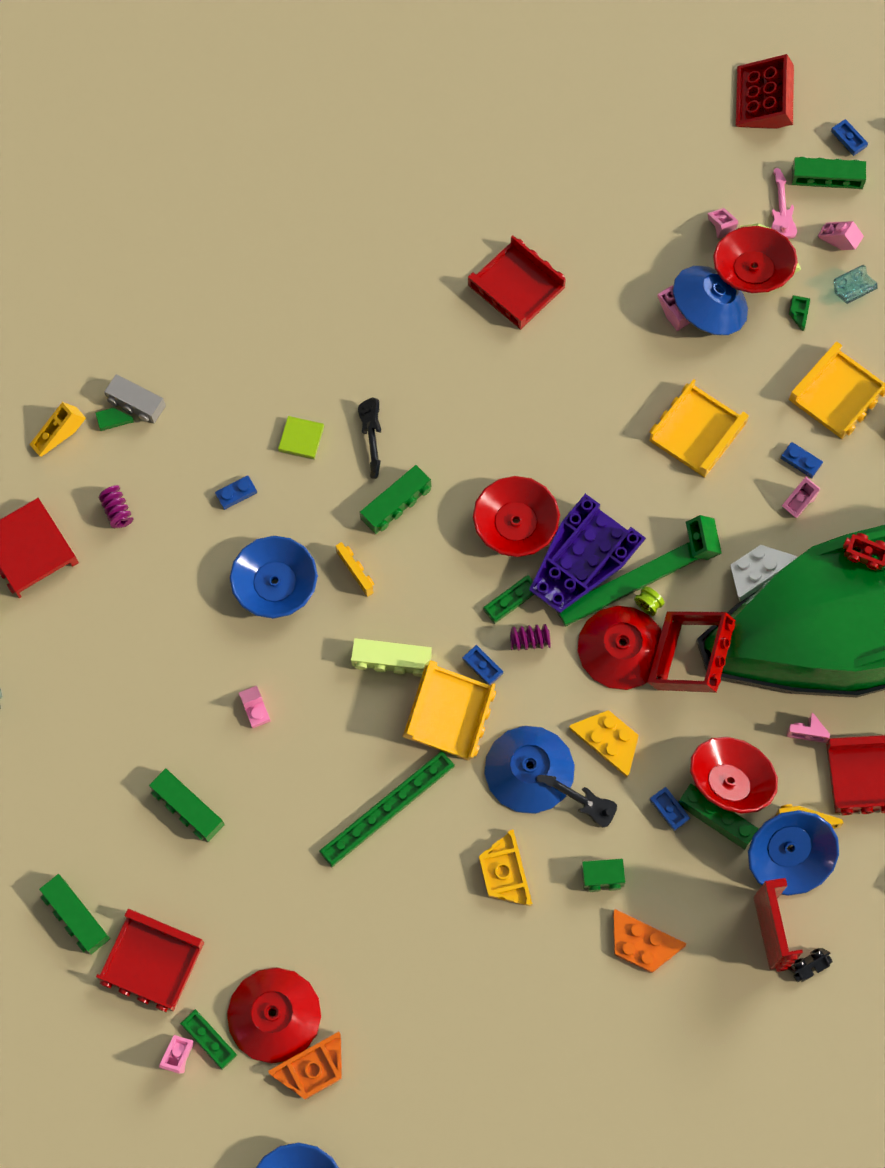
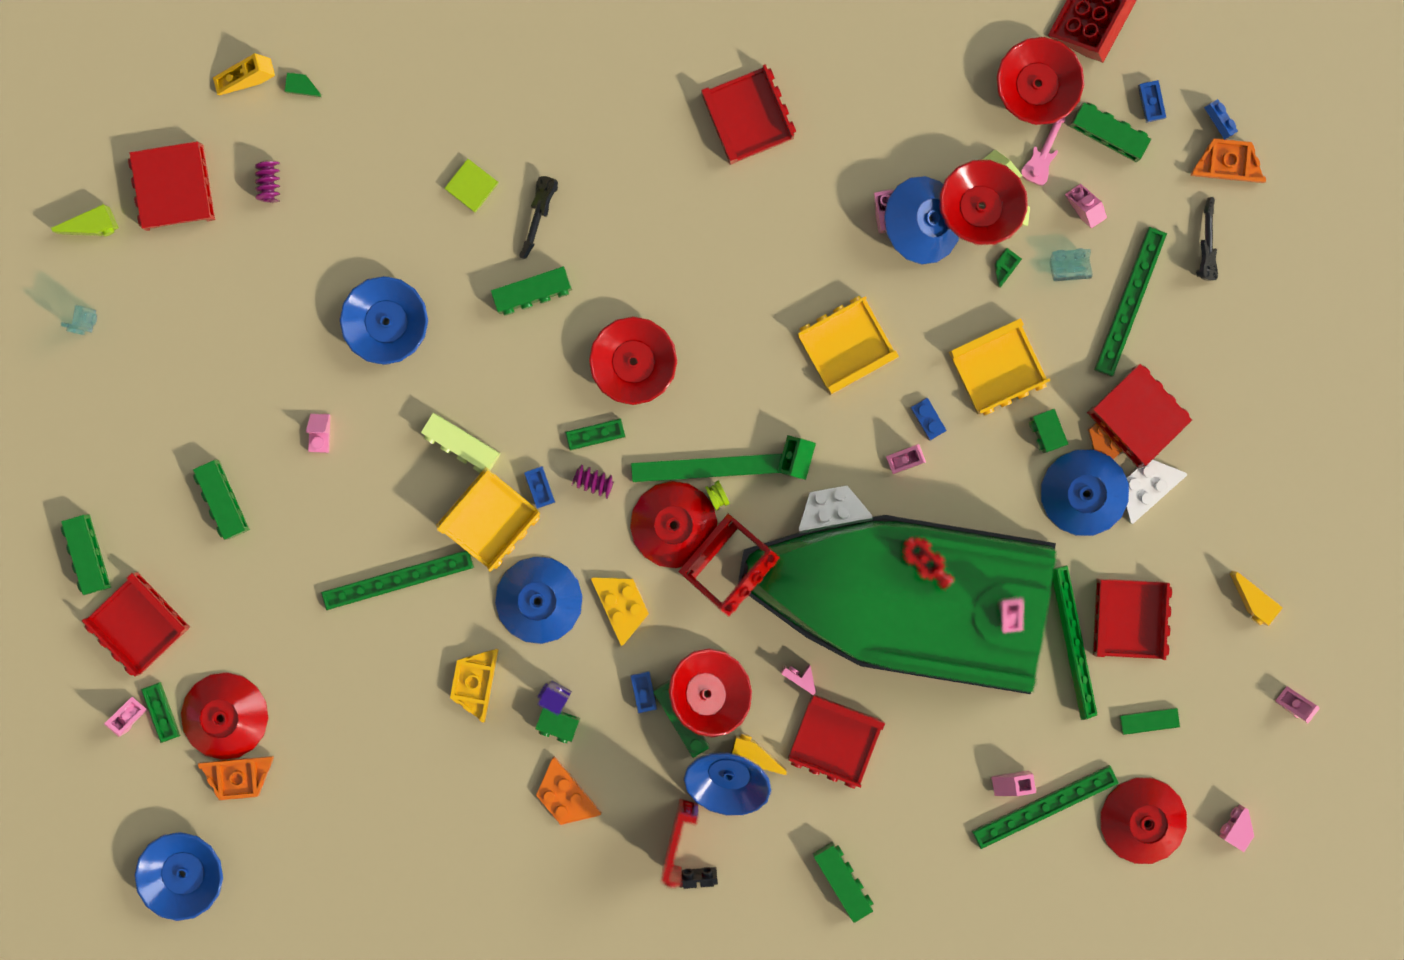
camera: 25 degrees right, 20 degrees up
(134, 399) = (328, 76): light grey brick -> none
(236, 492) = (387, 214): blue plate -> none
(355, 568) = (465, 342): yellow plate -> none
(583, 555) = (678, 425): dark purple wedge -> none
(589, 843) = (553, 697): none -> dark purple arch
(599, 809) = (581, 664): black piece -> none
(723, 222) = (978, 138): bright pink slope -> none
(752, 143) = (1051, 65): none -> red dish

